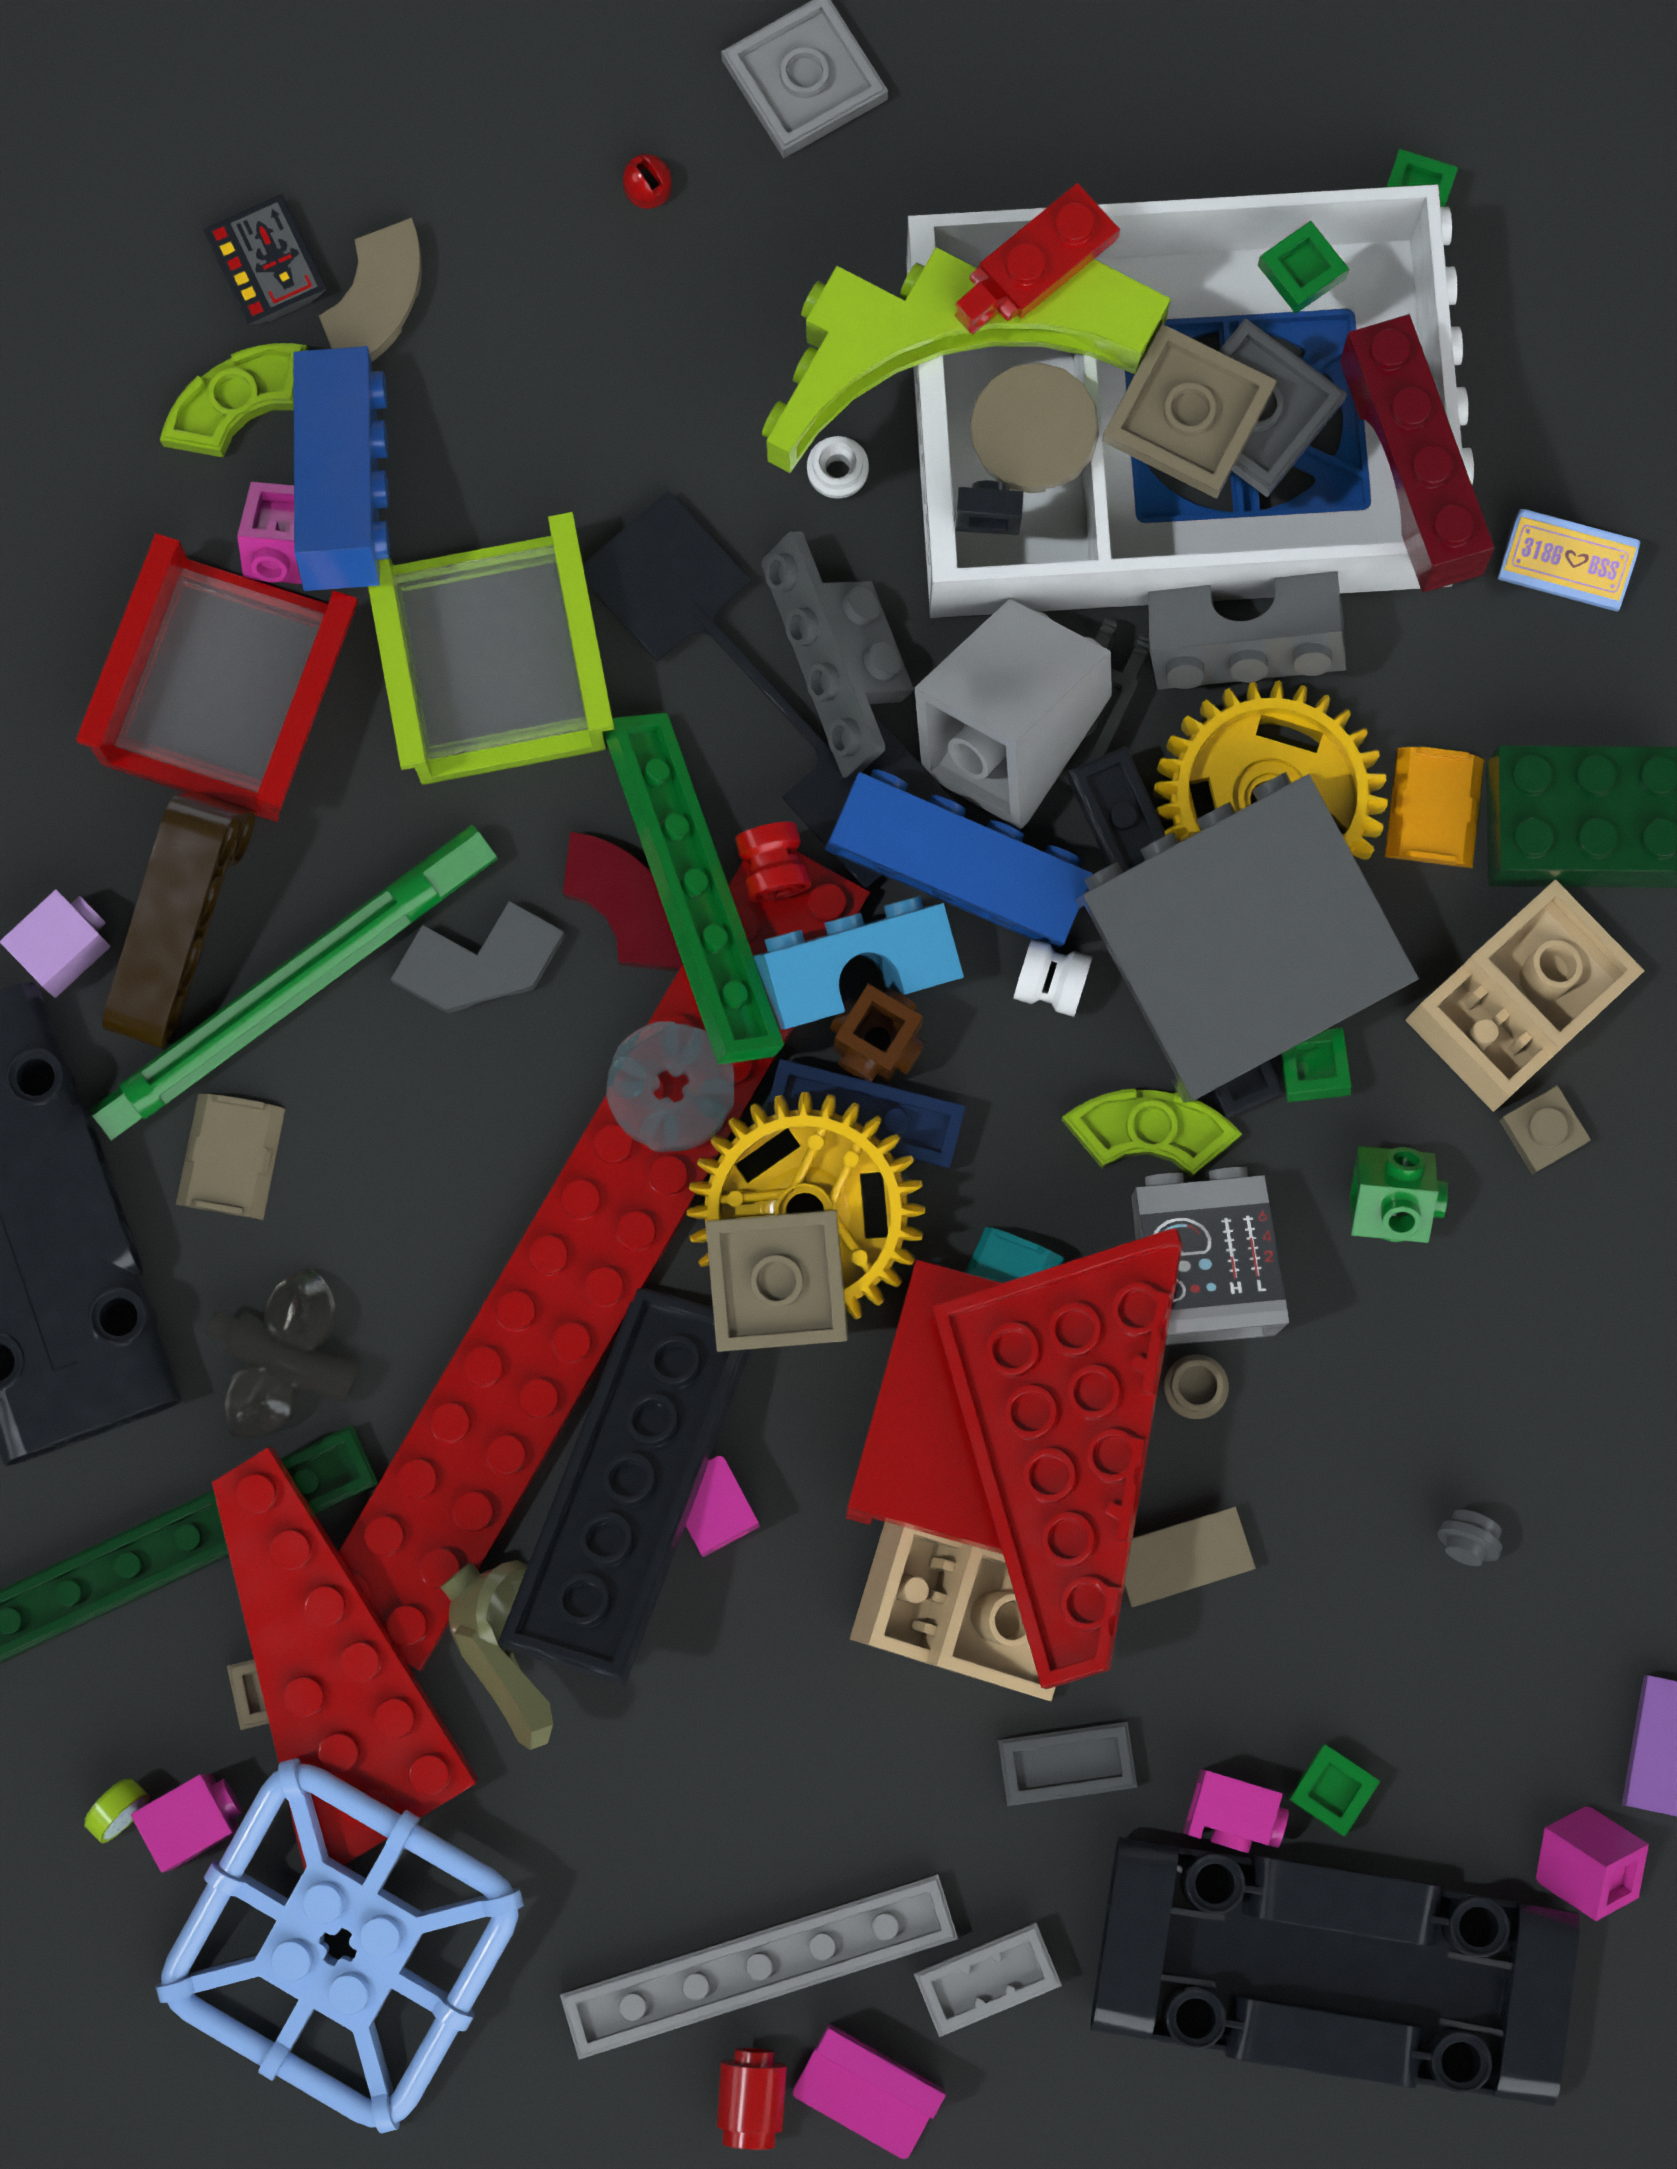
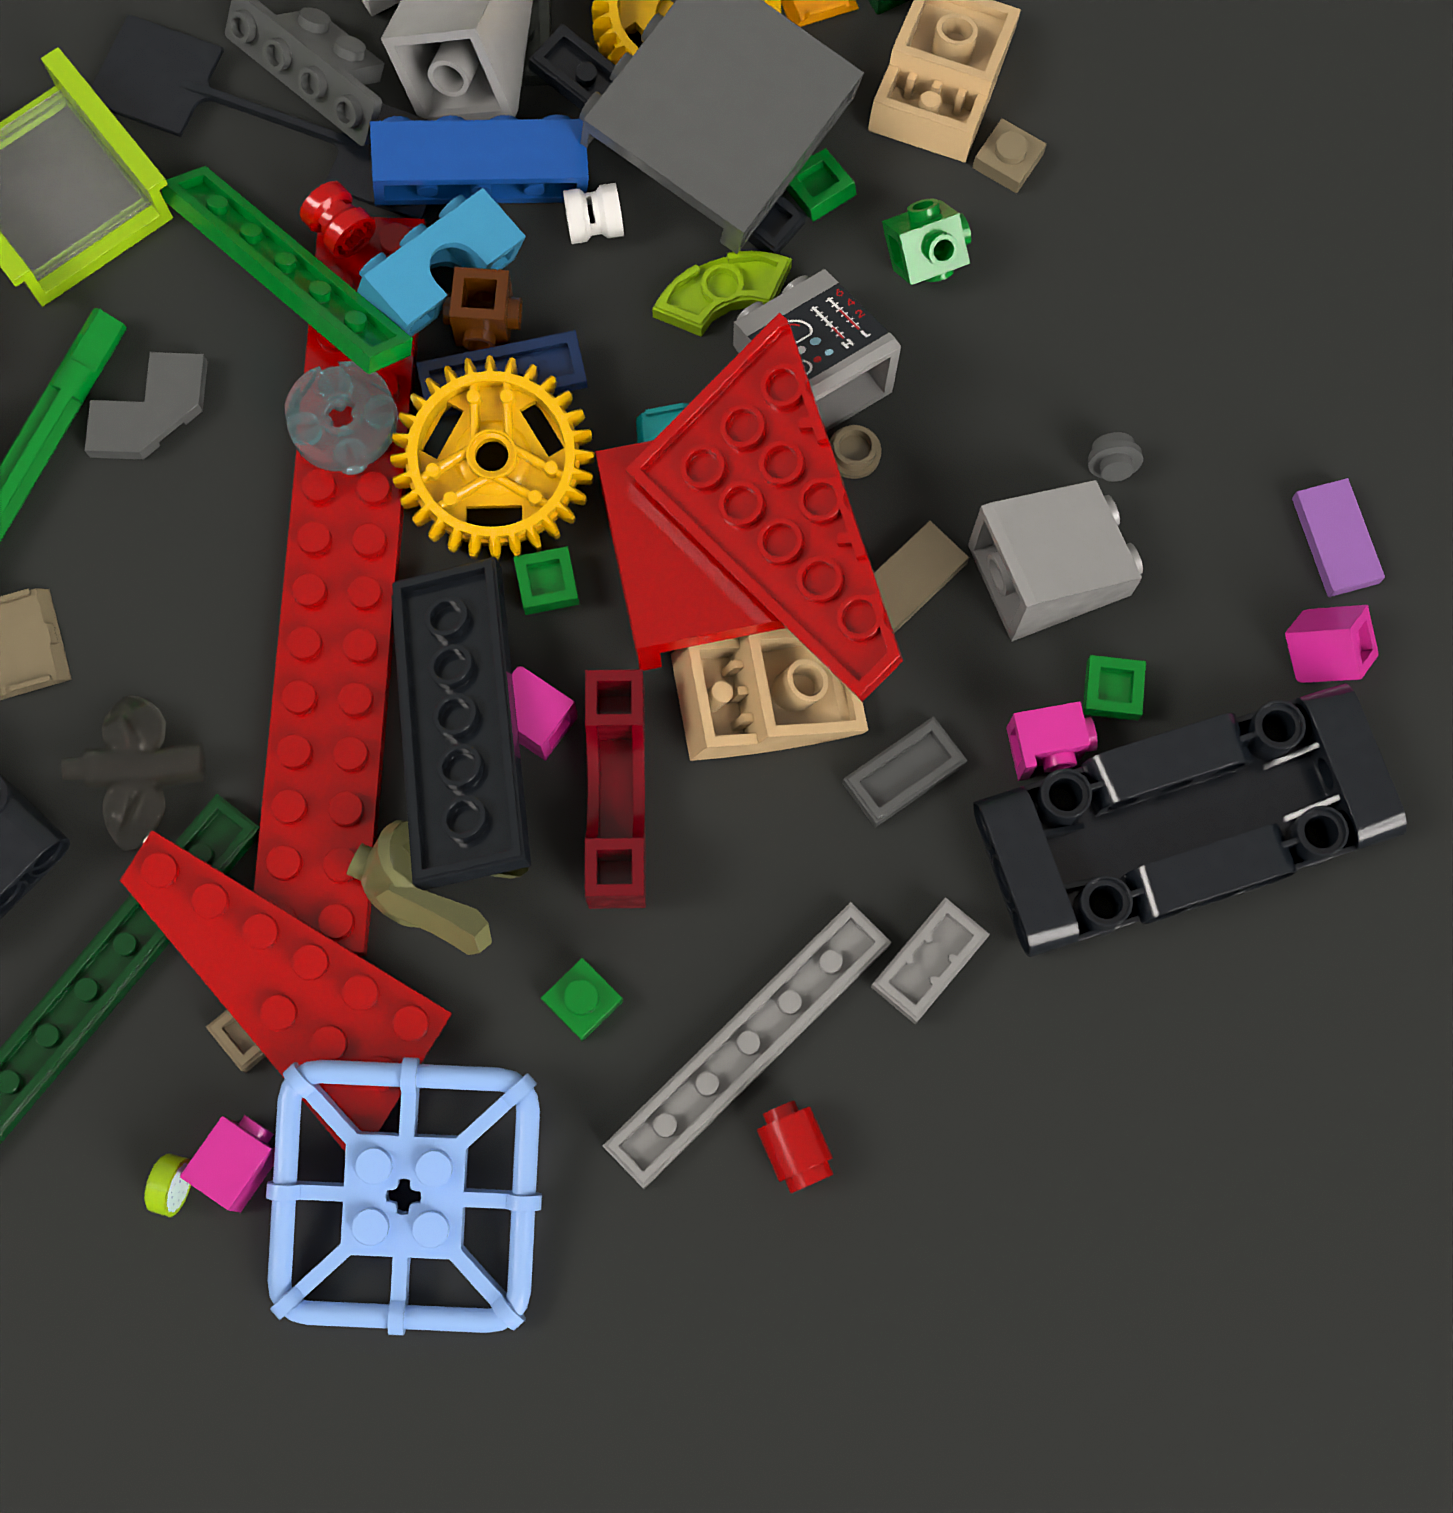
camera: 30 degrees left, 5 degrees down
(614, 1832) = (582, 999): none -> green plate
(624, 896) = (242, 311): dark red tile -> none
(755, 1637) = (615, 789): none -> dark red arch
(777, 1280) = (495, 511): dark tan tile -> none
(799, 1372) = (546, 580): none -> green plate
(868, 2092) = (884, 1094): dark pink panel -> none
(1346, 1619) = (1053, 556): none -> light grey slope

